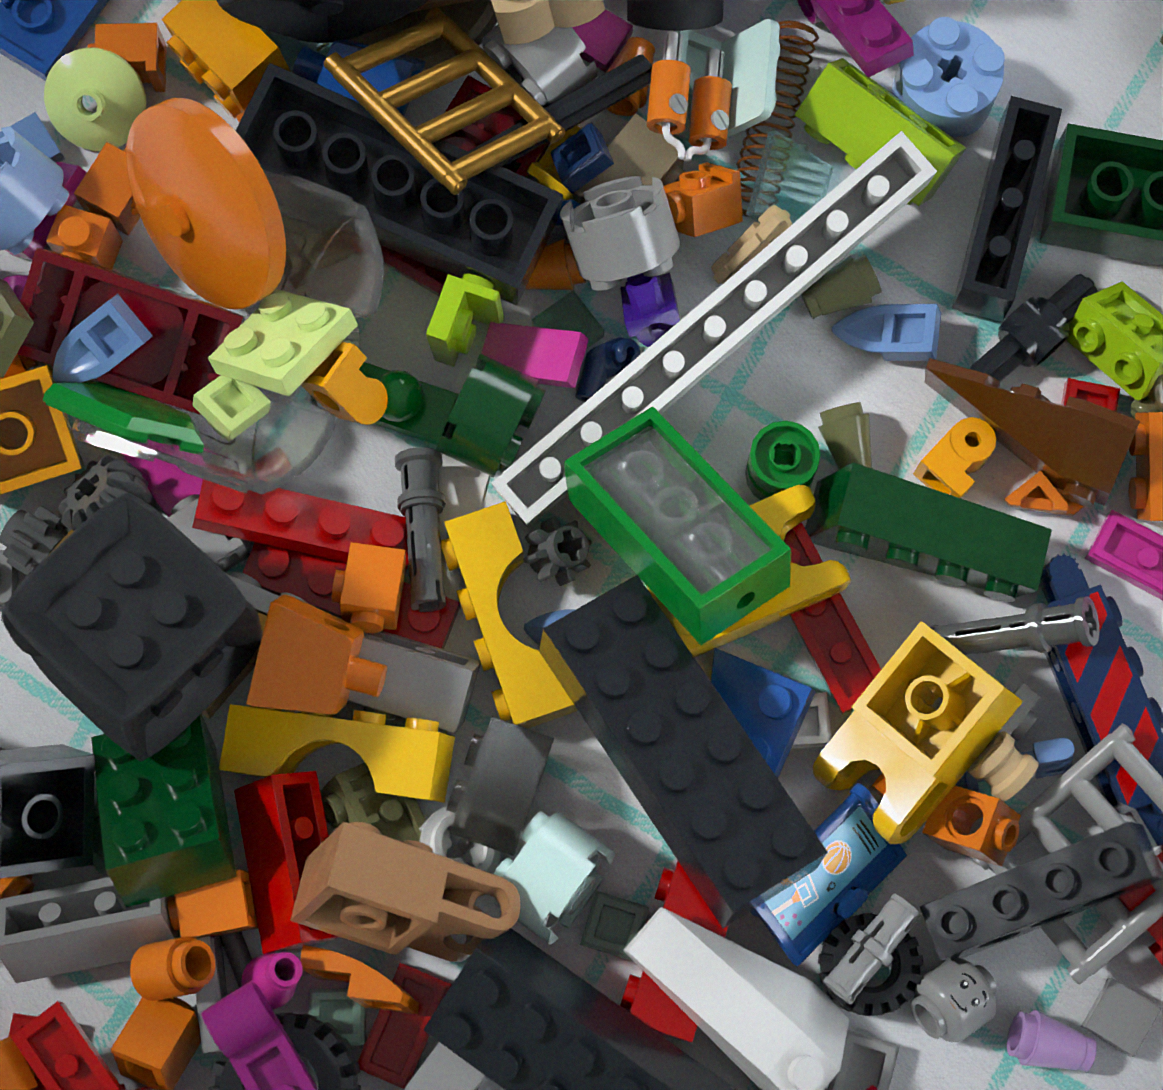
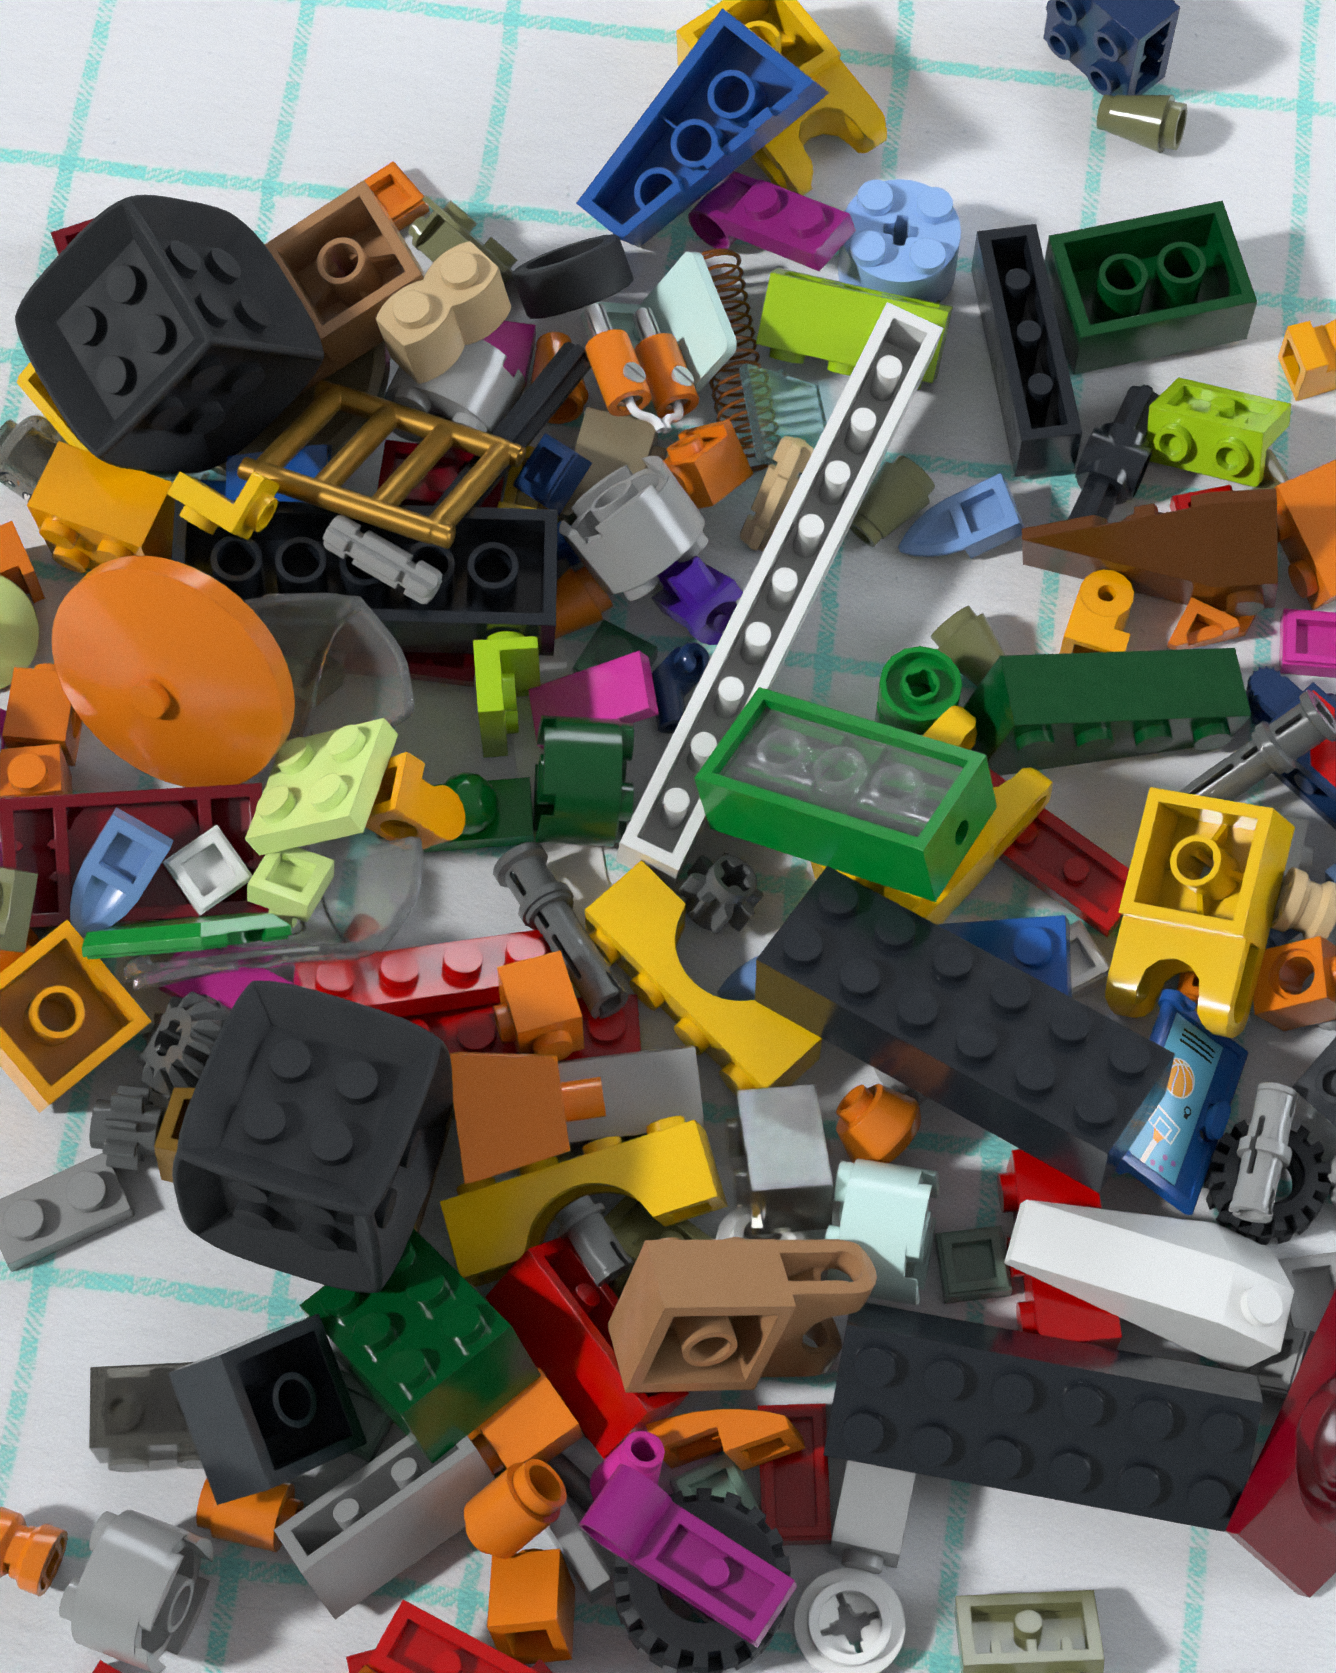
camera: 25 degrees left, 10 degrees down
(173, 368) = (208, 870): none -> white tile
(290, 87) = (209, 508): none -> yellow bracket
(327, 787) = (593, 1240): none -> dark grey pin
(404, 180) = (382, 559): none -> light grey axle
(589, 788) = (877, 1123): none -> orange cone

